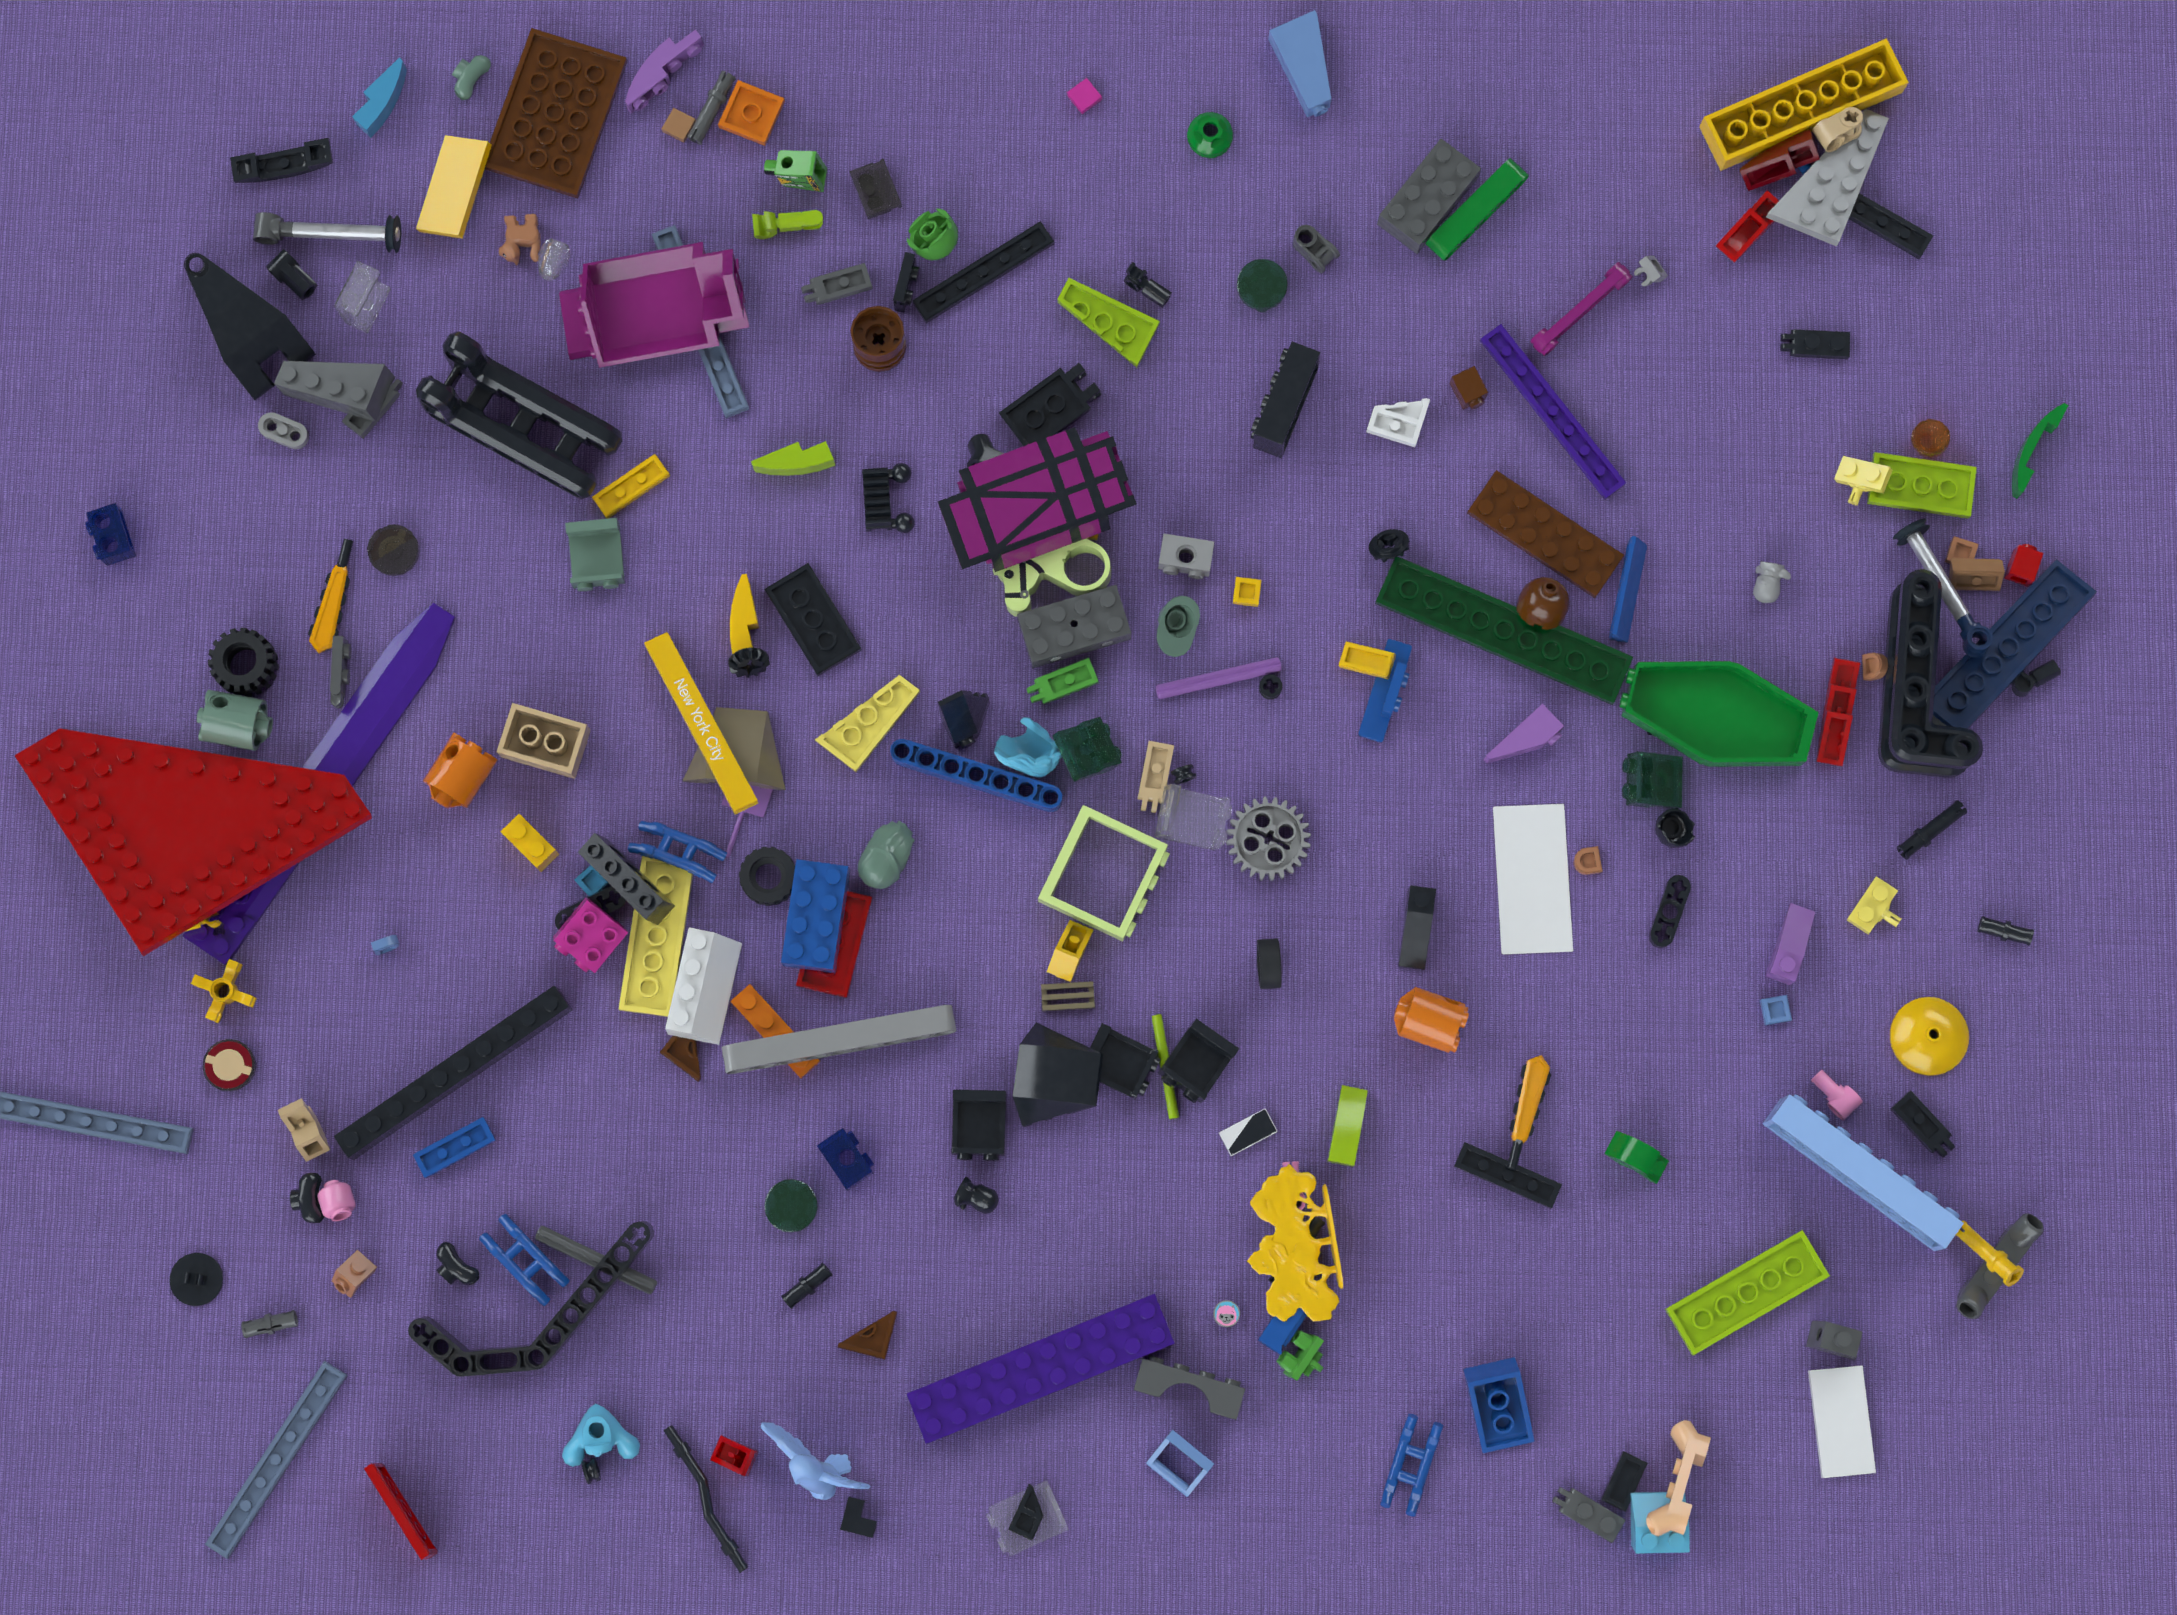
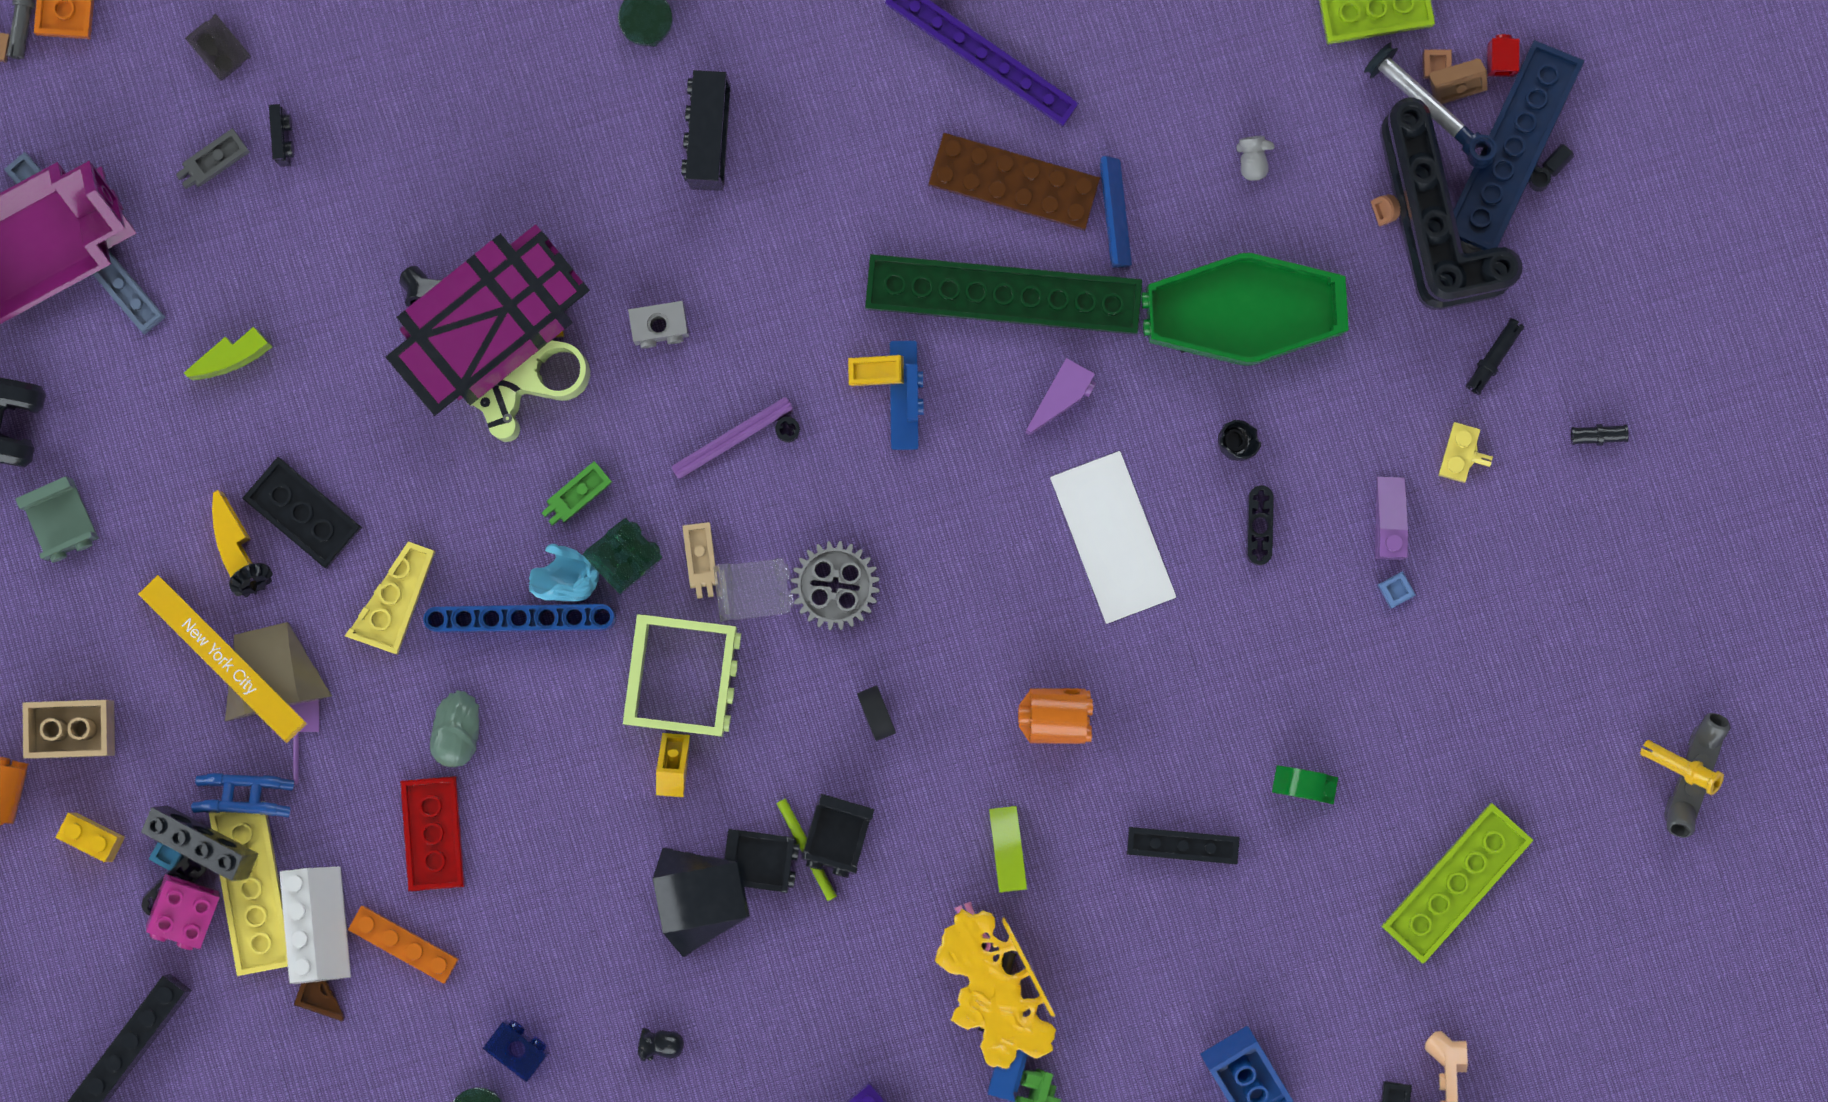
camera: 20 degrees left, 5 degrees up
(631, 486) = (71, 437): yellow tile -> none
(748, 876) = (363, 799): black tyre -> none
(766, 225) = (119, 120): lime piece -> none
(798, 169) = (132, 53): bright green torso -> none
(815, 916) = (404, 816): blue brick -> none
(838, 1039) = (469, 933): light grey beam -> none
(877, 498) = (327, 367): black gear -> none
(878, 325) = (269, 188): reddish brown wheel -> none
(933, 235) = (292, 77): bright green cylinder -> none
(963, 716) = (487, 564): black wedge -> none
(978, 1124) = (639, 970): black panel -> none
(983, 272) = (357, 97): black tile -> none
(1050, 406) = (470, 215): black tile -> none
(1053, 639) = (592, 422): dark grey piece -> none
(1061, 986) = (664, 819): dark tan tile -> none
(1114, 322) = (508, 106): lime wing -> none
(1137, 280) = (517, 55): black bar -> none
(1177, 625) = (673, 399): sand green piece -> none
(1183, 774) = (728, 548): black bush -> none
(1226, 1313) = (948, 1076): tile -> none
(1246, 591) = (732, 340): yellow plate -> none
(1248, 1132) = (910, 888): black tile -> none
(1389, 538) = (859, 237): black gear -> none
(1399, 421) = (830, 114): white wing -> none
(1417, 927) = (1013, 626): black slope -> none
(1469, 388) = (889, 57): reddish brown brick -> none
(1530, 1093) = (1179, 755): light orange sword -> none
(1543, 603) = (1034, 254): reddish brown cylinder -> none
(1588, 861) = (1162, 501): nougat tile -> none
(1653, 780) = (1201, 398): clear green plate -> none
(1834, 1339) = (1557, 902): dark grey torso -> none
(1838, 711) = (1364, 267): red slope -> none
(1841, 1099) = (1489, 658): bright pink pin -> none
(1841, 1421) = (1589, 980): white tile -> none
(1862, 477) = (1314, 19): light yellow plate -> none
(1863, 1172) = (1535, 727): light blue brick -> none
(1912, 1040) = (1538, 570): yellow dish -> none
(1923, 1124) = (1577, 656): black hinge -> none

